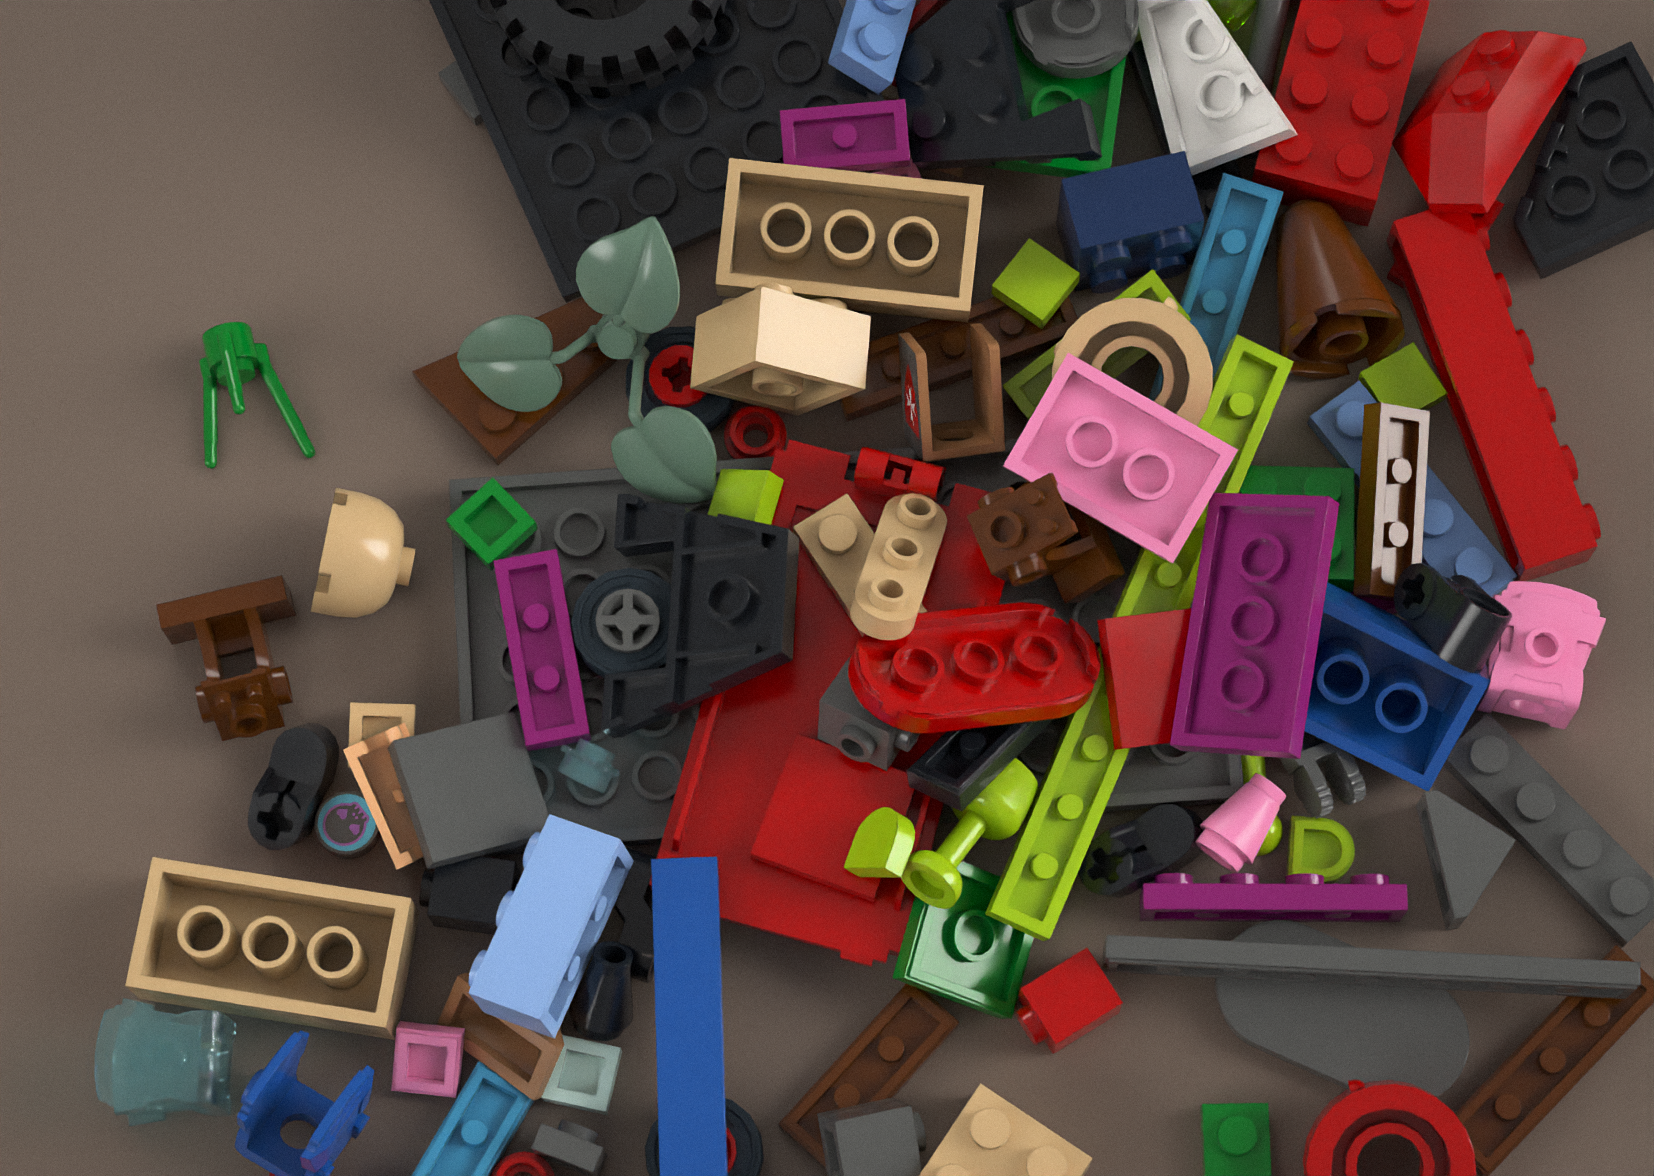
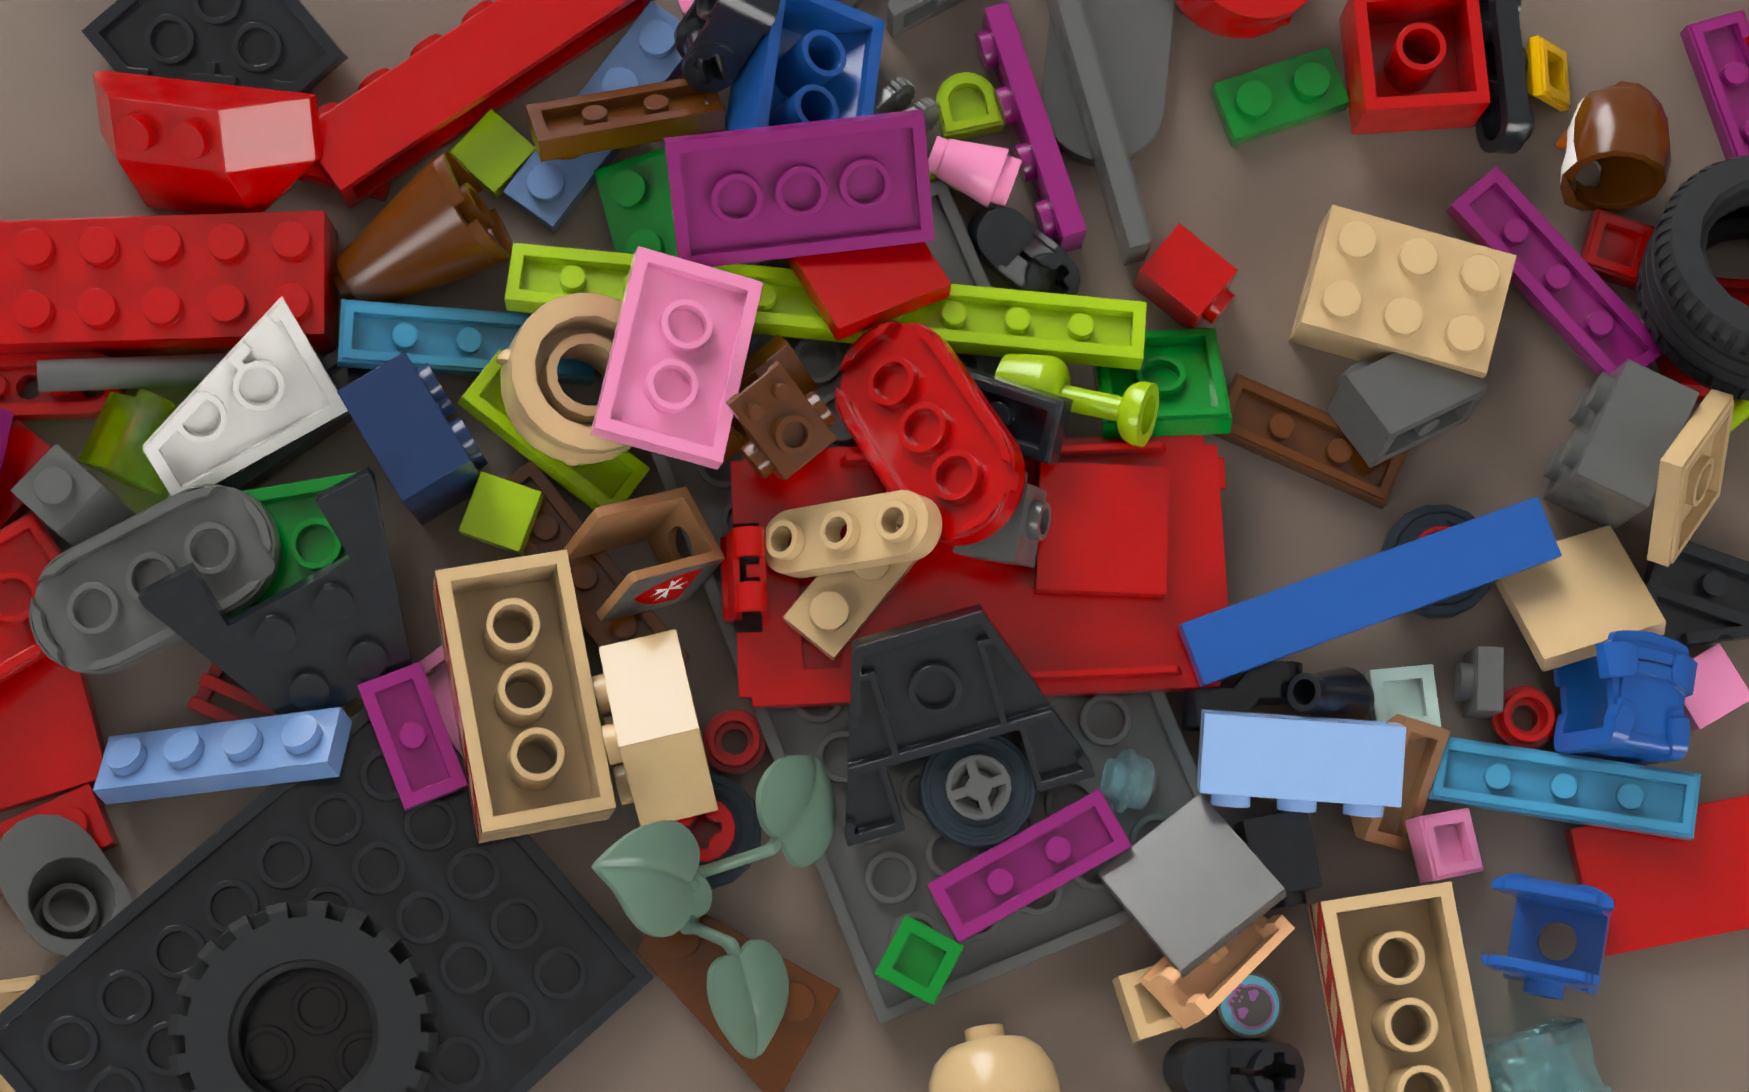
camera: 115 degrees left, 5 degrees up
(746, 494) = (818, 718): lime tile -> none
(881, 845) = (1125, 466): lime tile -> none

